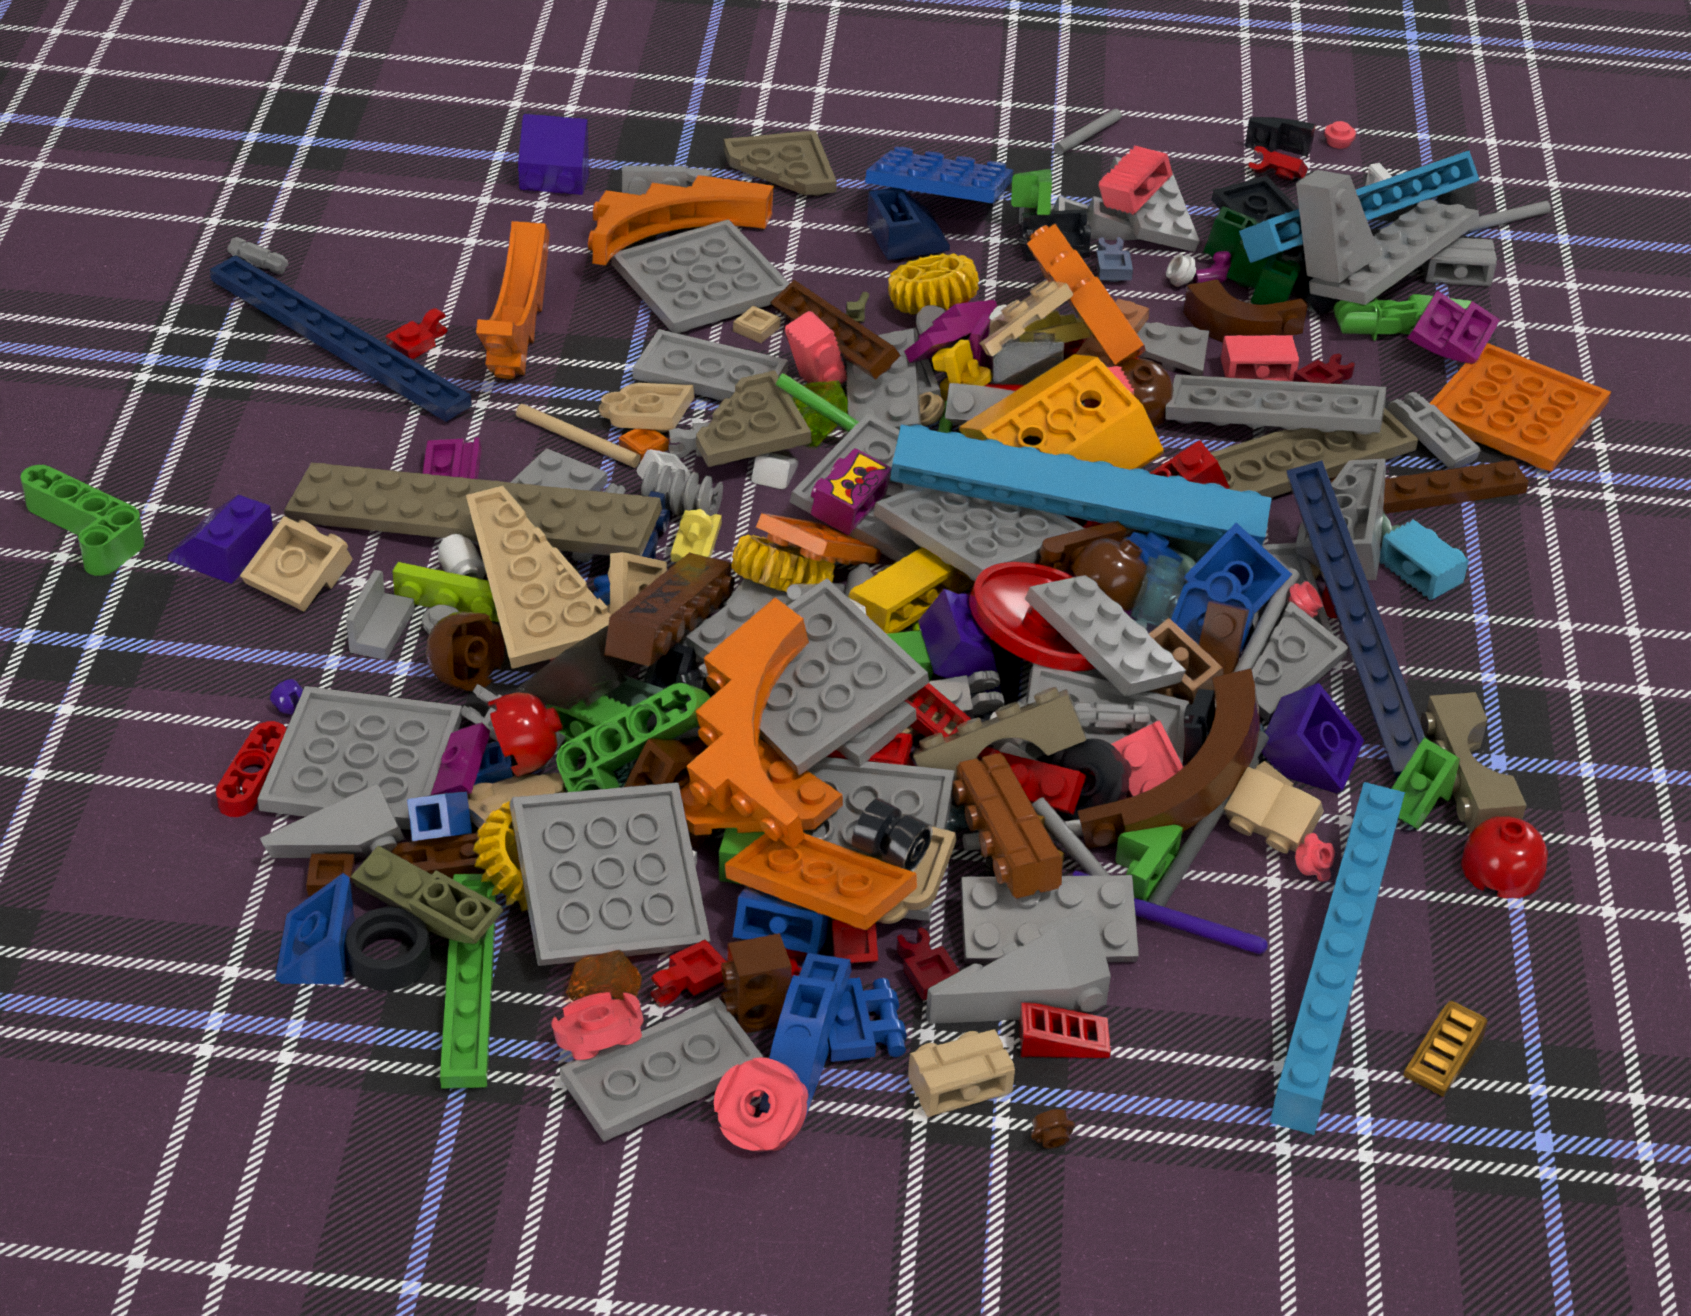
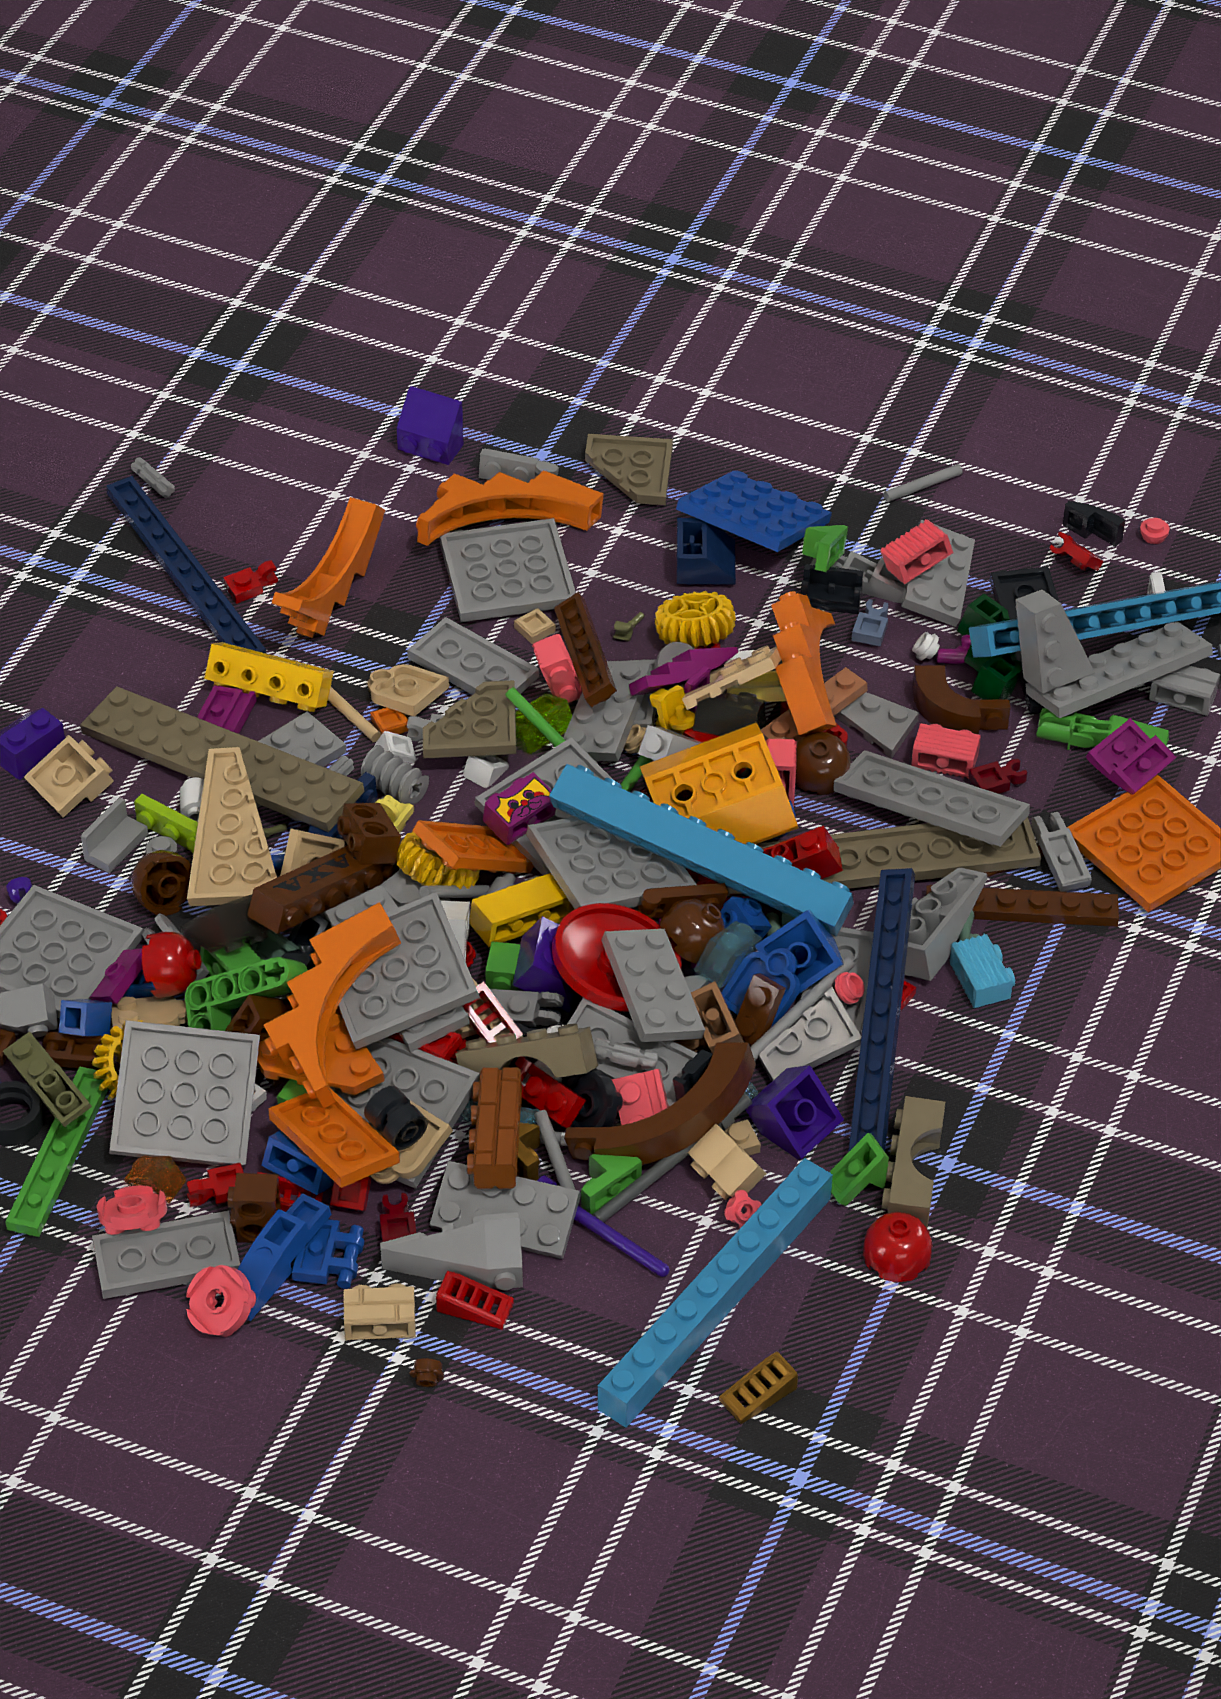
camera: 20 degrees right, 5 degrees up
(489, 417) = (269, 675): none -> yellow brick
(697, 545) = (369, 833): none -> reddish brown brick

